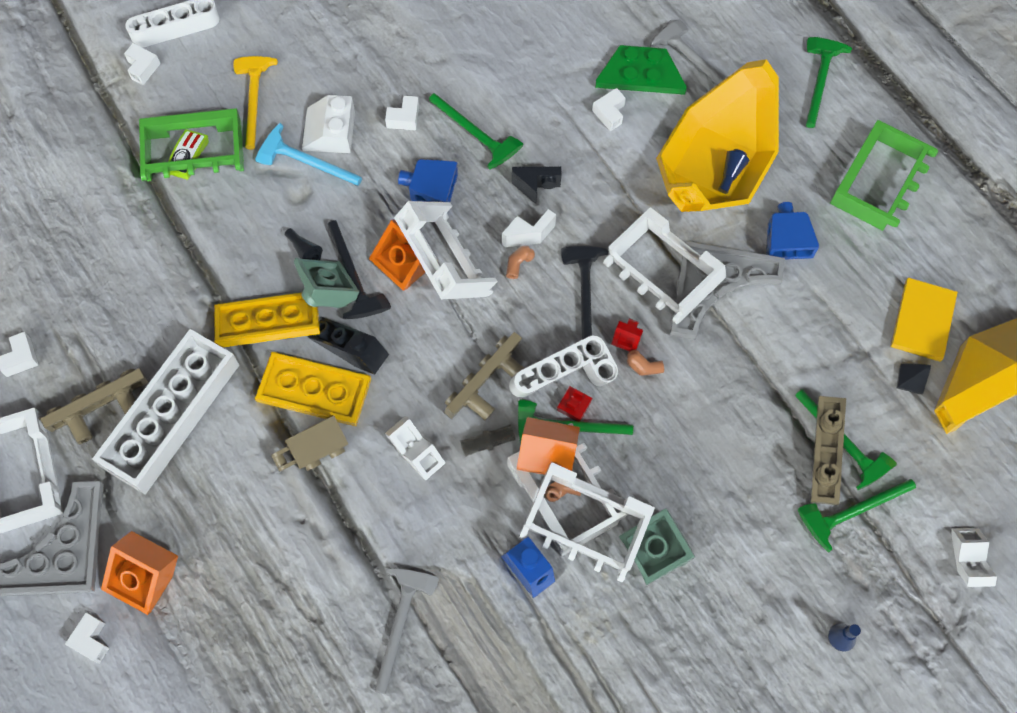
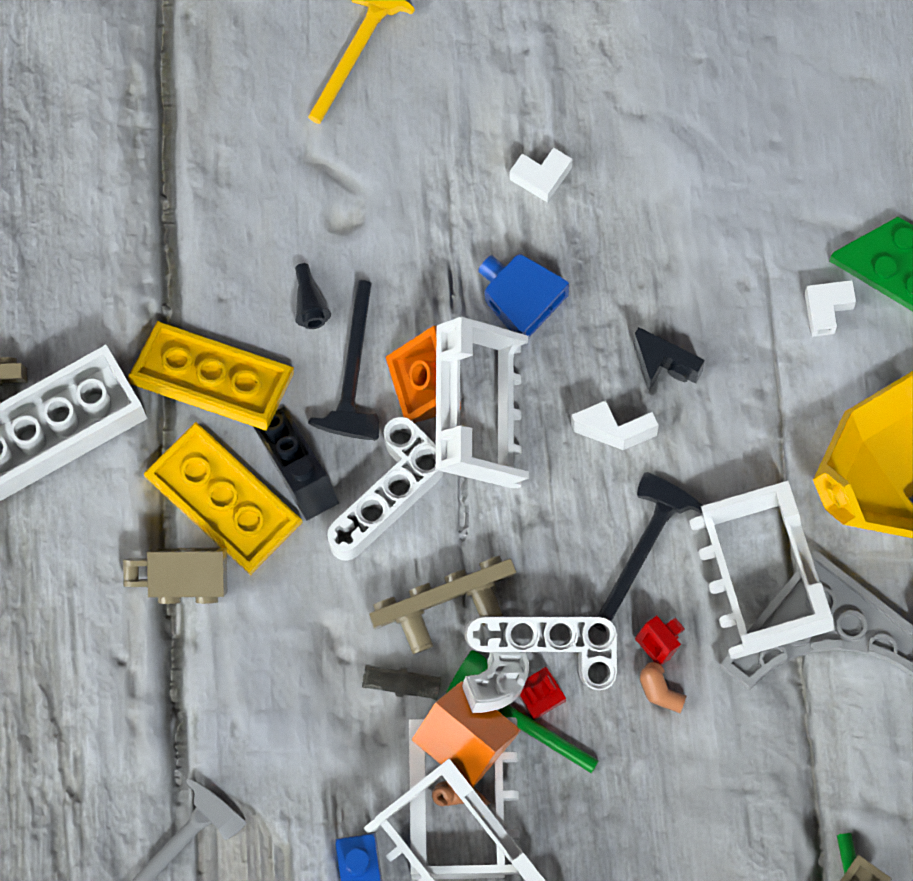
camera: 35 degrees right, 5 degrees up
(161, 126) = (215, 37): bright green hinge -> none
(188, 147) = (226, 89): slope -> none
(275, 145) = (348, 133): medium azure piece -> none
(325, 283) = (308, 365): sand green slope -> none
(329, 125) = (433, 141): white slope -> none
(414, 338) = (379, 494): none -> white beam
(415, 448) = (305, 644): white slope -> none
(500, 151) = (642, 292): green piece -> none
(516, 258) = (575, 457): nougat arm -> none
(549, 407) = (499, 683): none -> white tile

